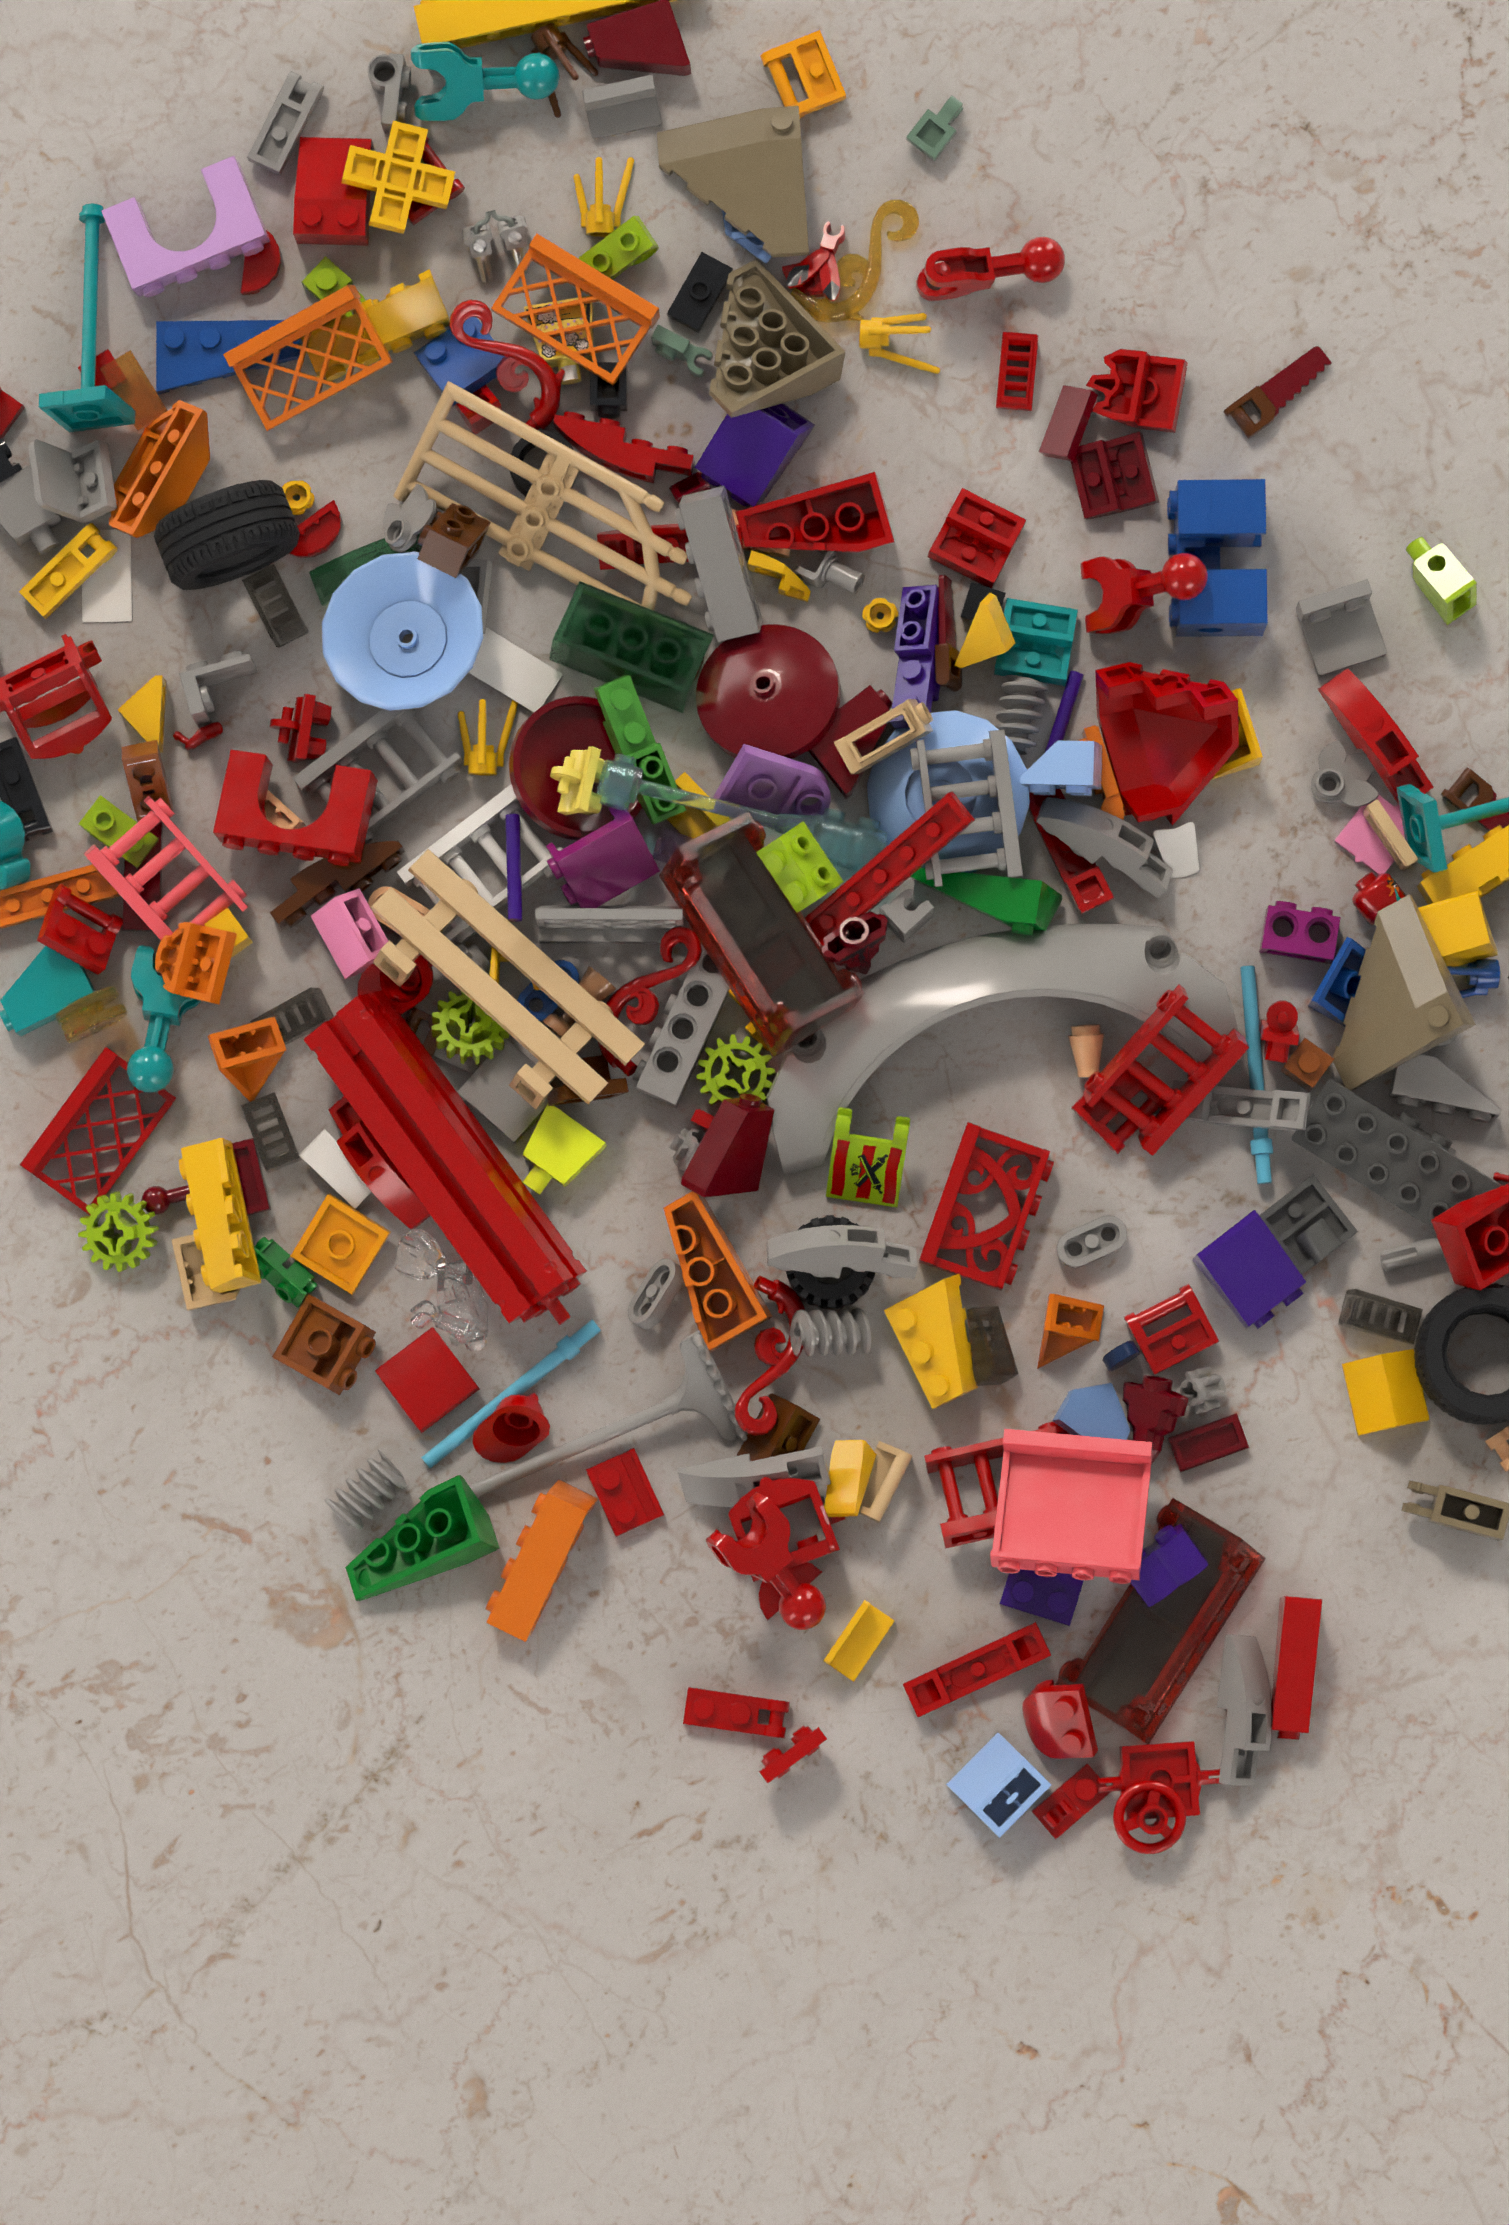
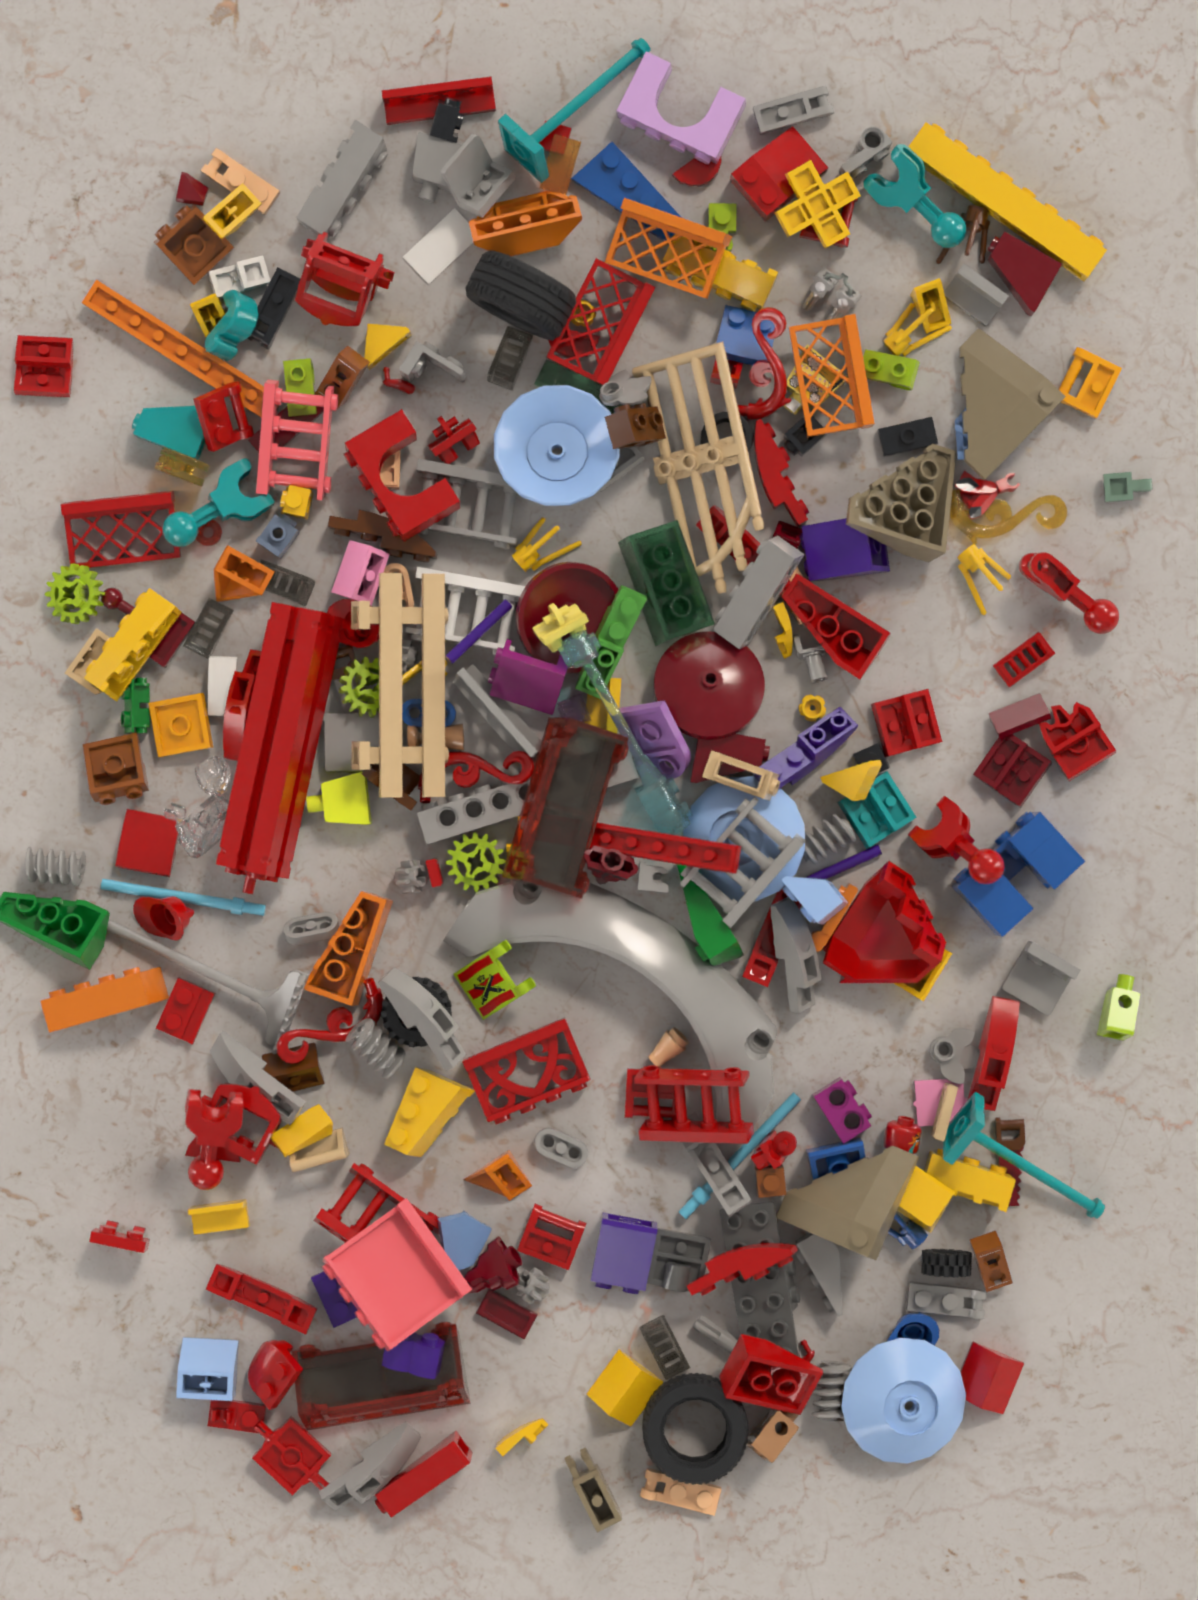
camera: 35 degrees right, 5 degrees up
(67, 571) = (422, 221): yellow plate -> none
(189, 1048) = (214, 539): none -> clear red plate
(195, 961) = (261, 500): orange slope -> none
(251, 992) = (278, 546): none -> sand blue brick
(350, 473) = (624, 328): none -> red fence
(514, 671) = (594, 528): white sticker -> none
(585, 147) = (931, 296): none -> yellow slope
(673, 345) = (861, 448): sand green plate -> none
(731, 1149) = (428, 900): dark red slope -> none
(734, 1712) = (117, 1183): red plate -> none
(800, 867) = (619, 799): lime brick -> none
(946, 651) = (823, 766): piece -> none
(989, 1366) = (444, 1157): clear smoke slope -> none
(1120, 1355) = (511, 1221): dark blue tile -> none
(1160, 1826) = (260, 1479): red piece -> none
(1179, 849) = (829, 998): white sticker -> none
(1277, 391) = (1146, 818): piece -> none
(1344, 1522) = (528, 1431): none -> yellow slope
(1366, 1148) = (749, 1260): none -> red slope

